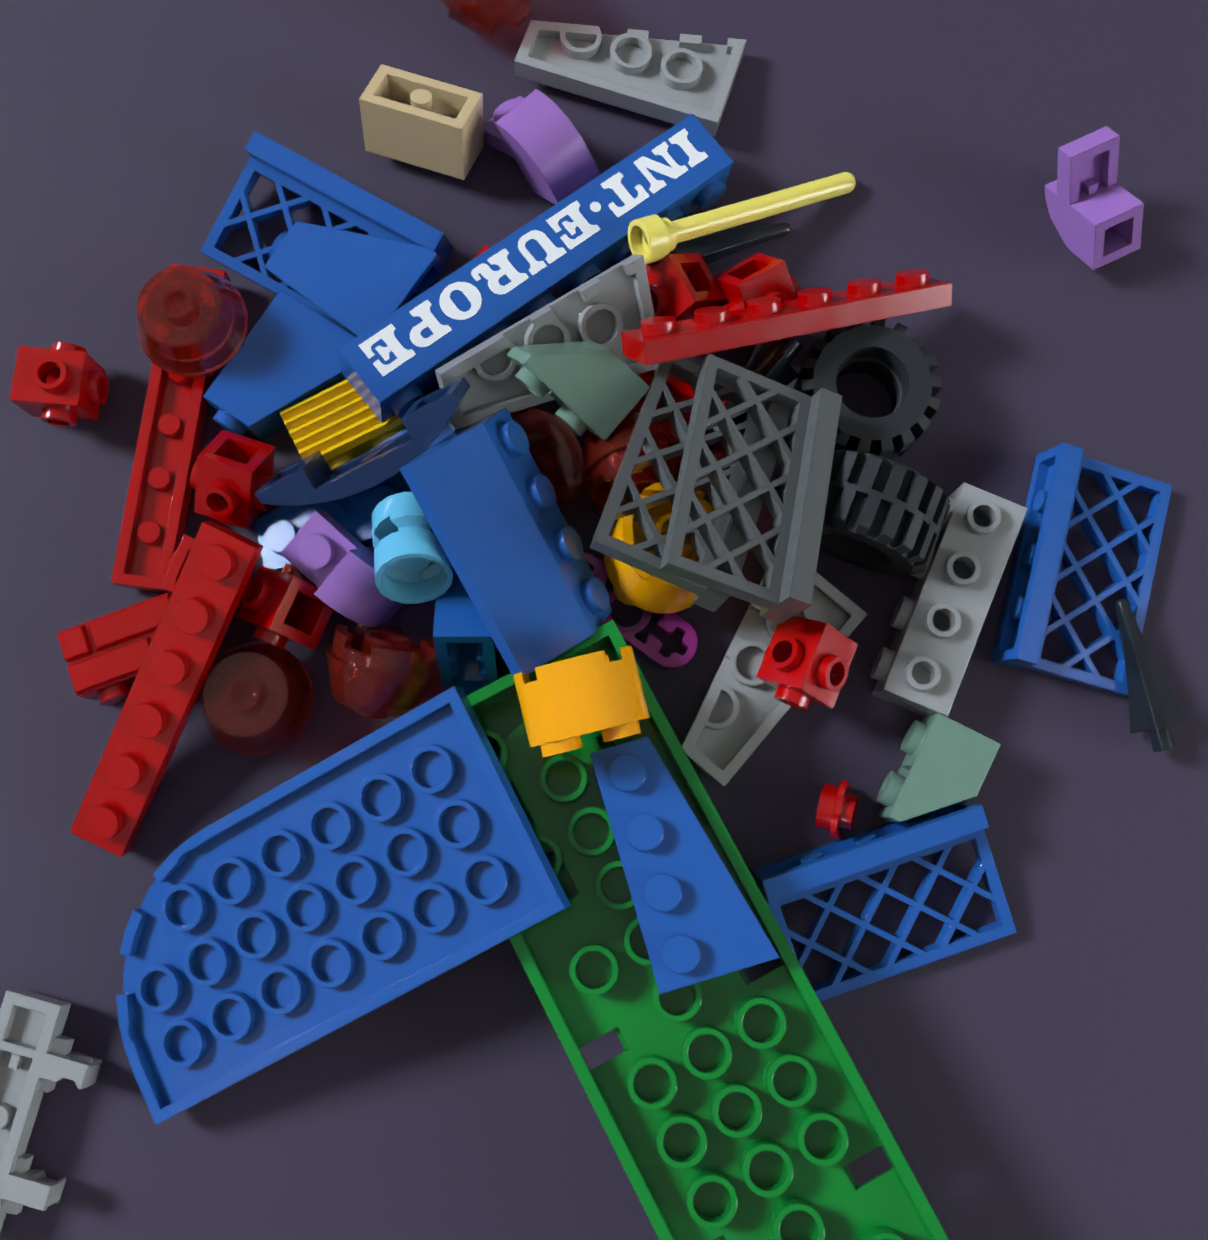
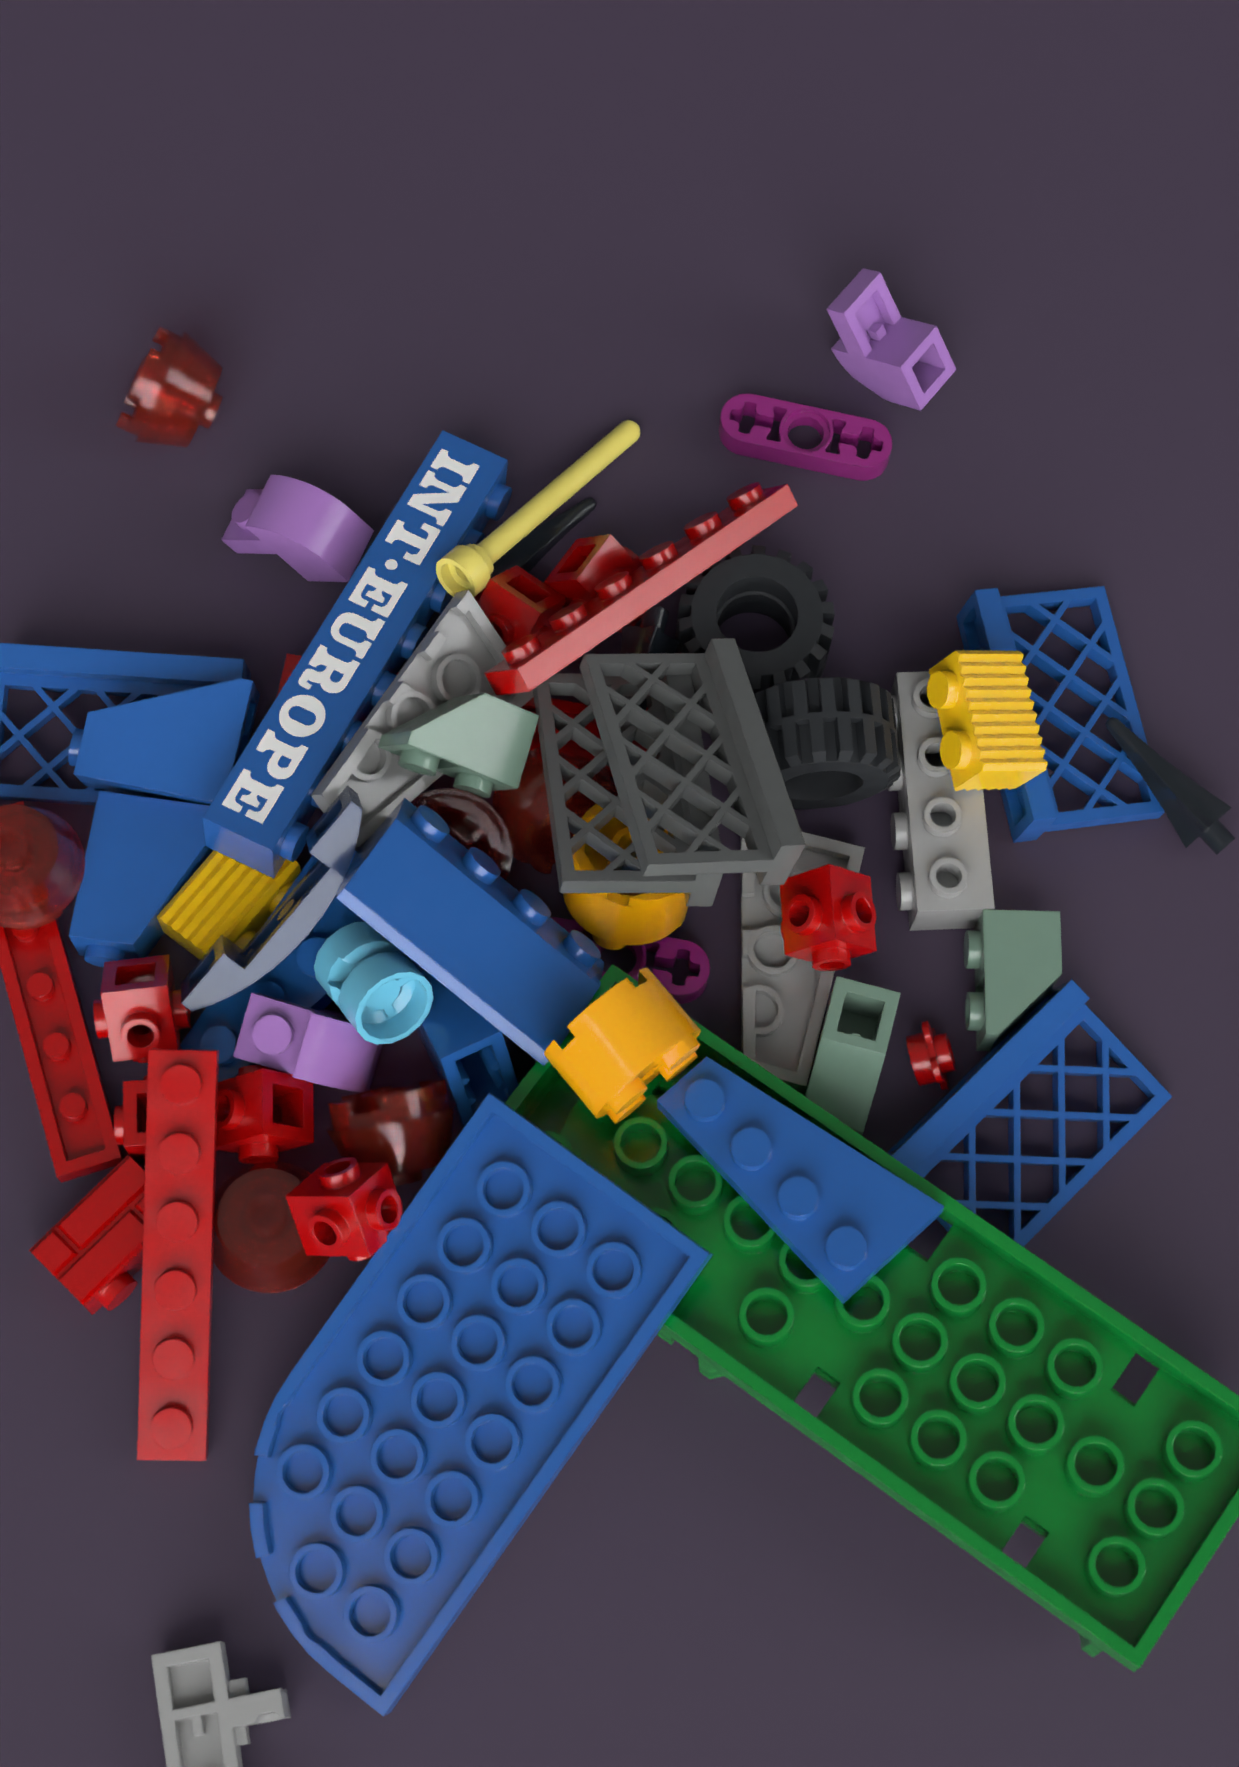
camera: 25 degrees left, 10 degrees down
(304, 721) = (346, 1209): none -> red brick
(422, 121) = (159, 562): tan brick -> none
(633, 71) = (355, 414): light grey wing -> none
(771, 778) = (852, 1050): none -> sand green slope
(985, 227) = (826, 422): none -> magenta beam
(1019, 558) = (986, 719): none -> yellow brick

